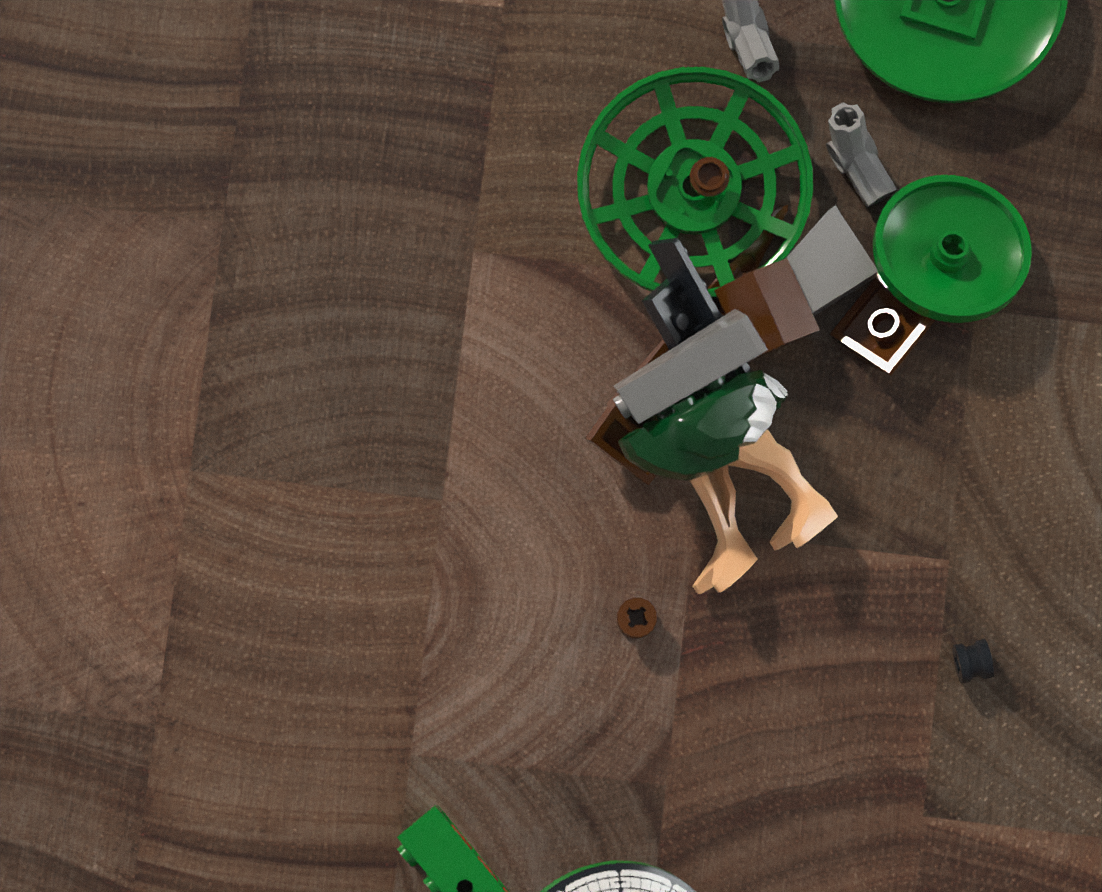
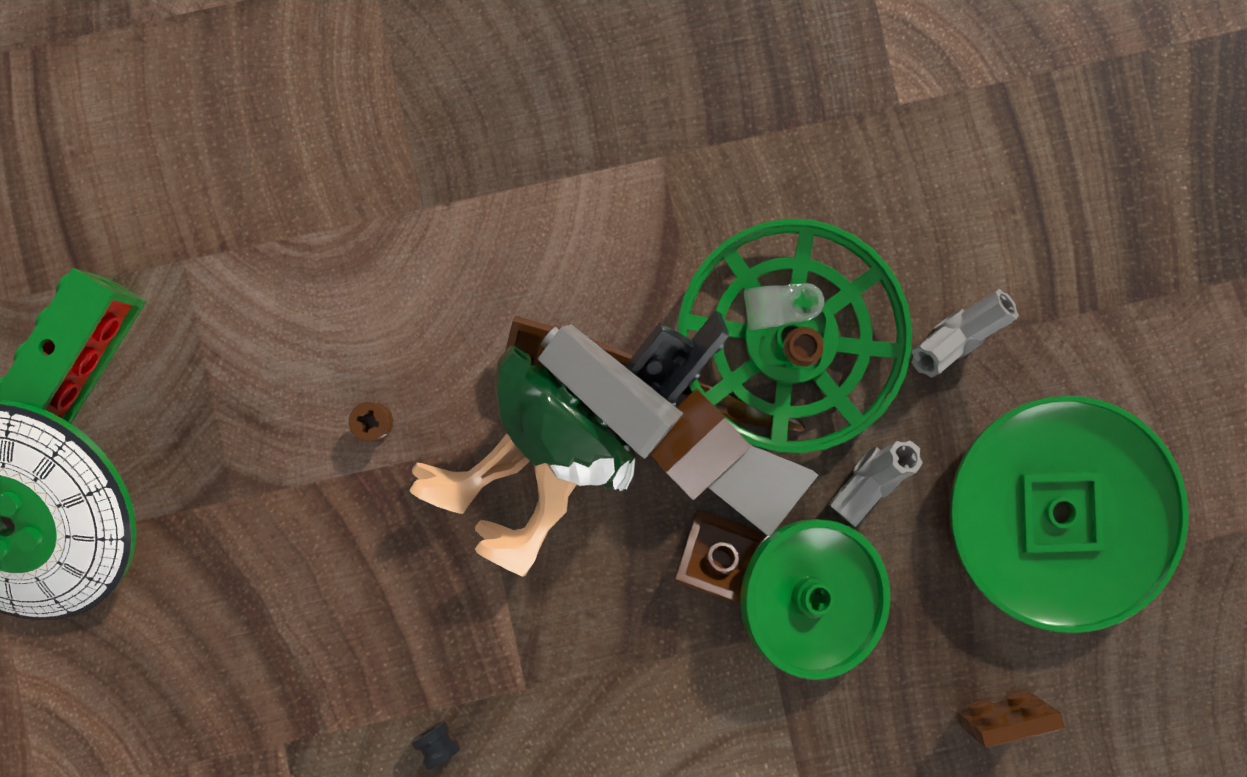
camera: 70 degrees right, 5 degrees up
(663, 187) = (775, 305): none -> clear piece

